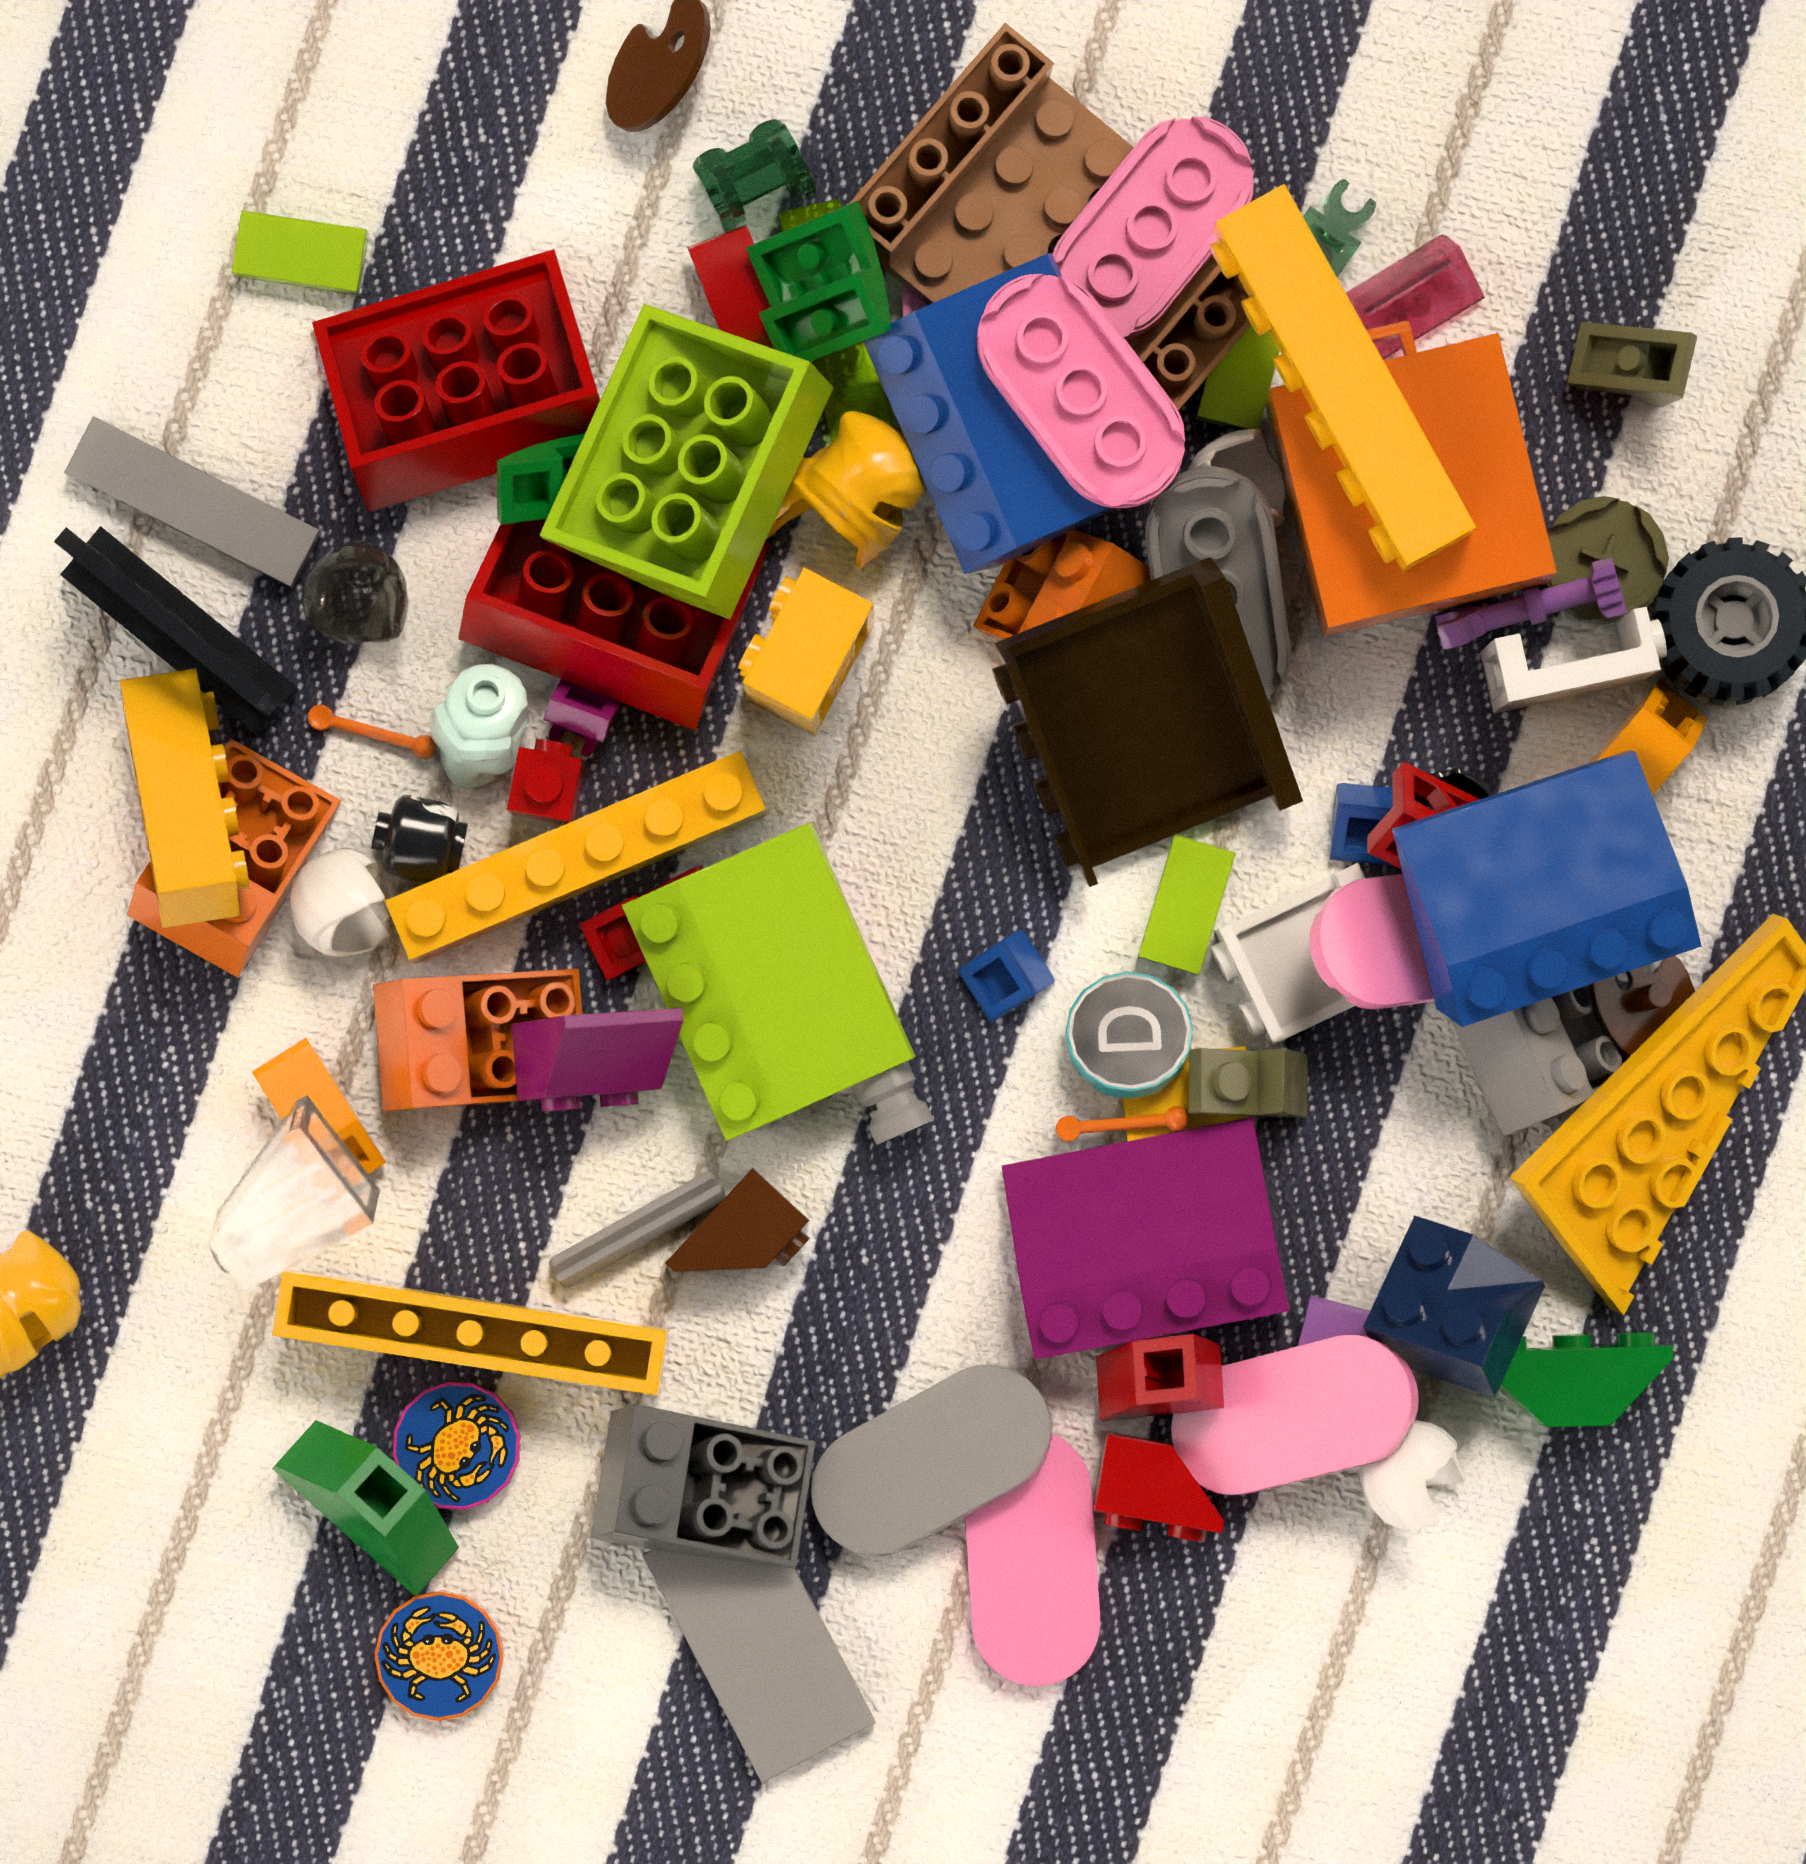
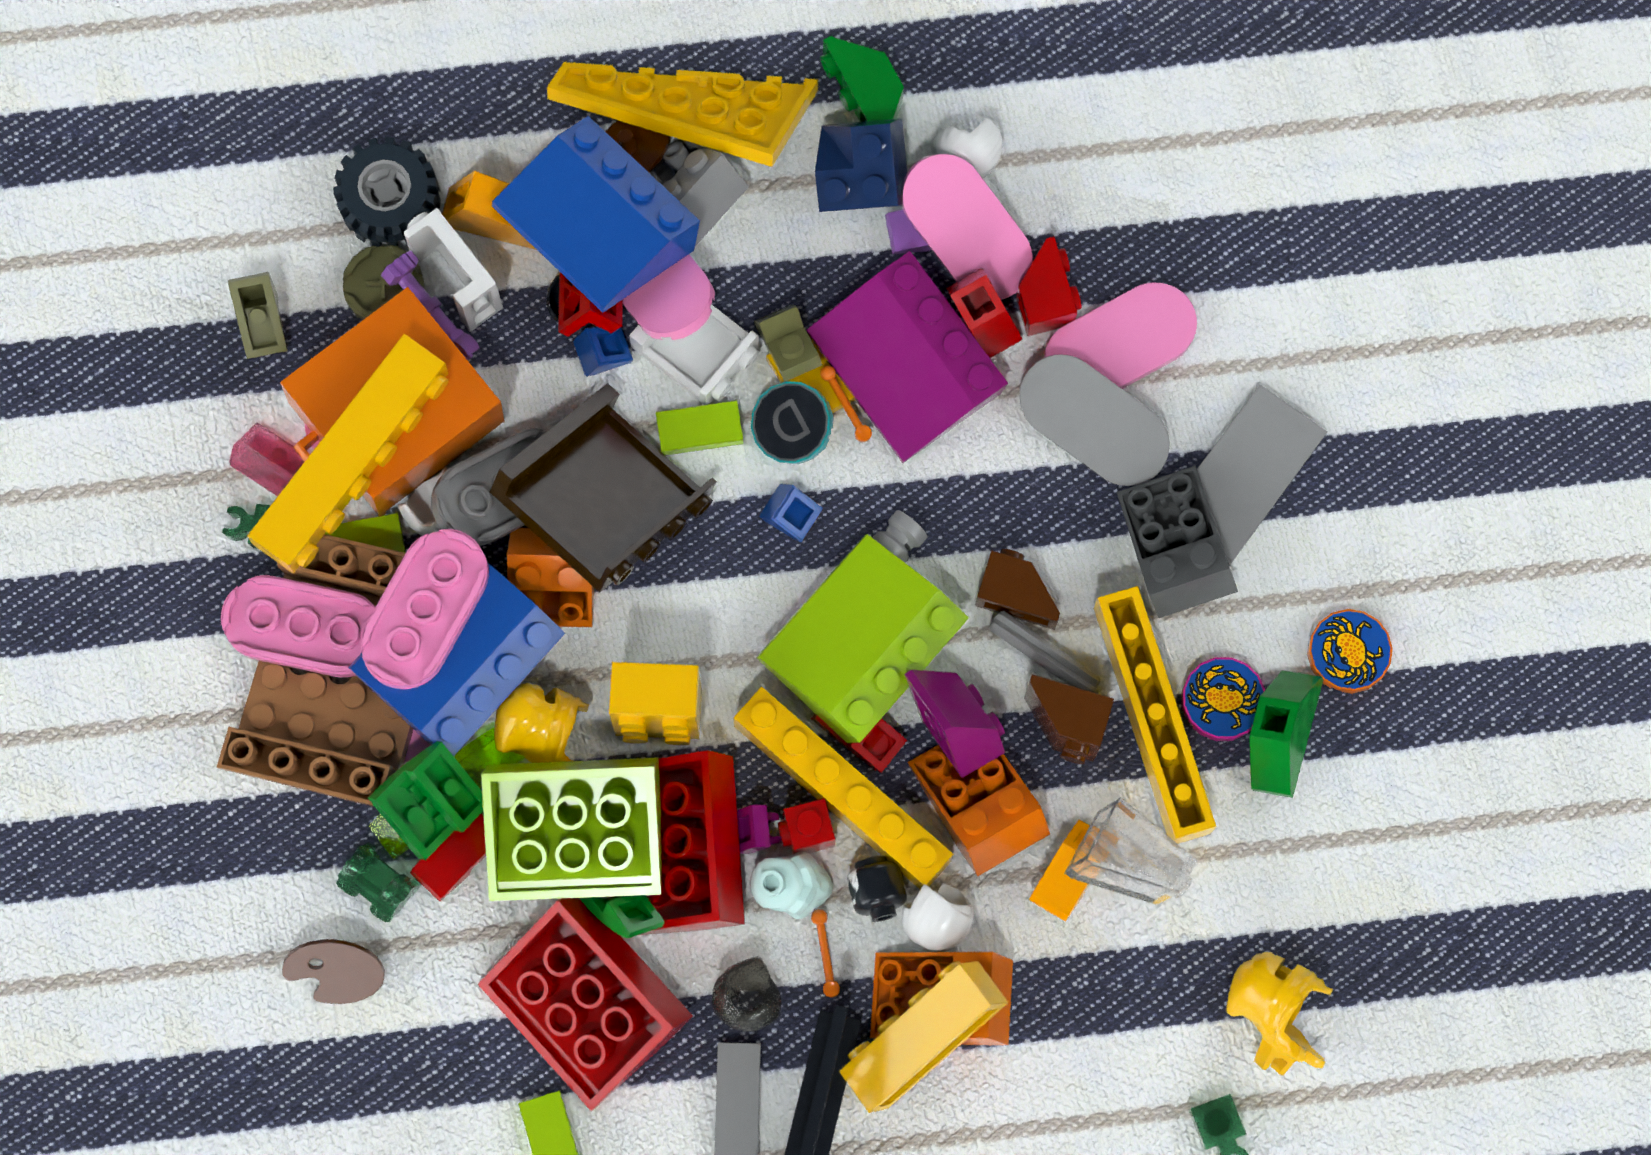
camera: 115 degrees left, 10 degrees down
(518, 1214) = (1069, 717): none -> reddish brown slope

